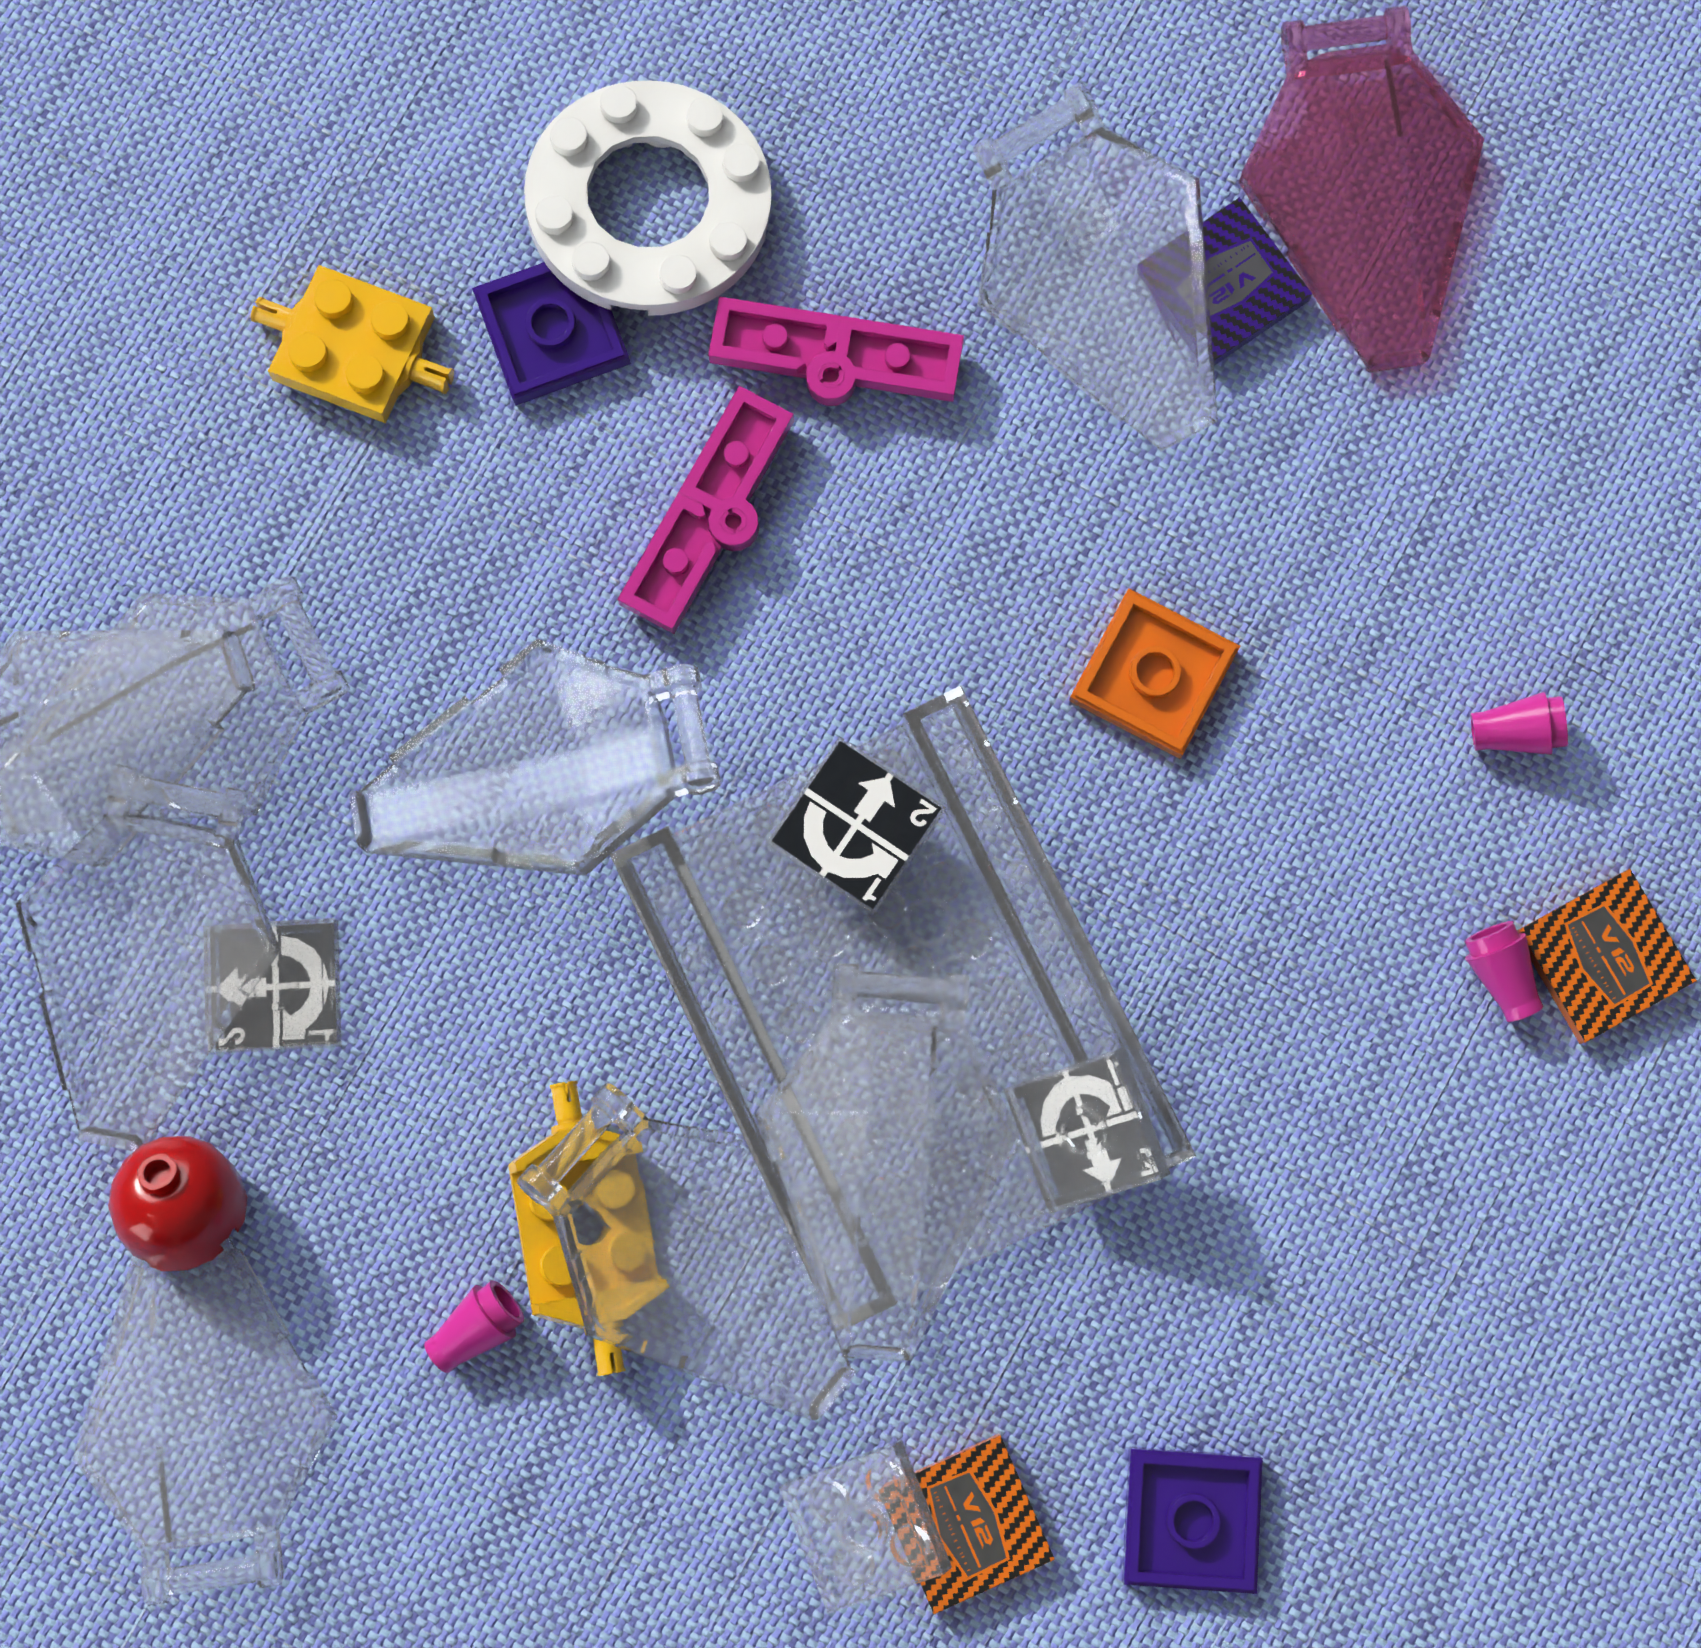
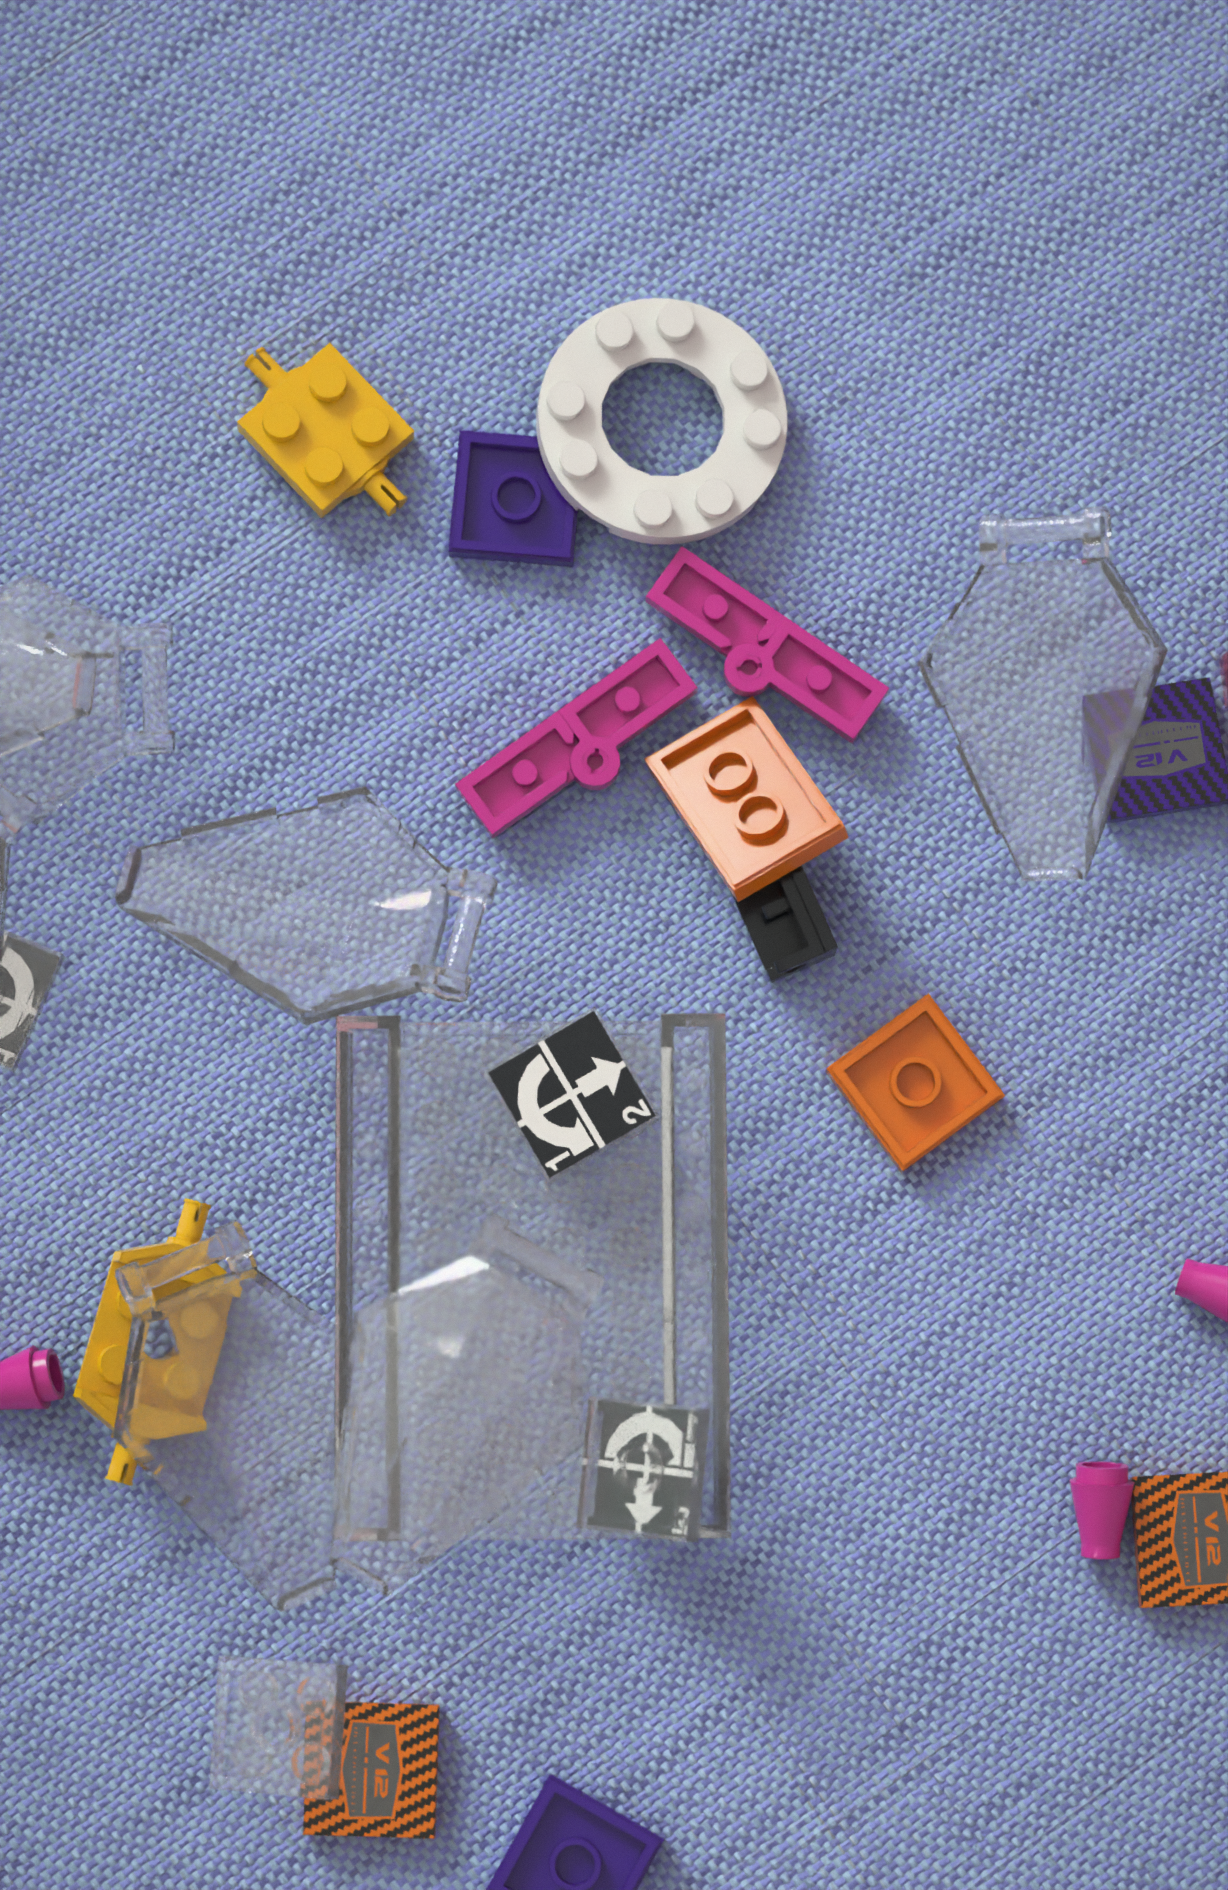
camera: 20 degrees right, 0 degrees up
(885, 490) = (746, 798): none -> tile
(959, 573) = (787, 925): none -> black hinge

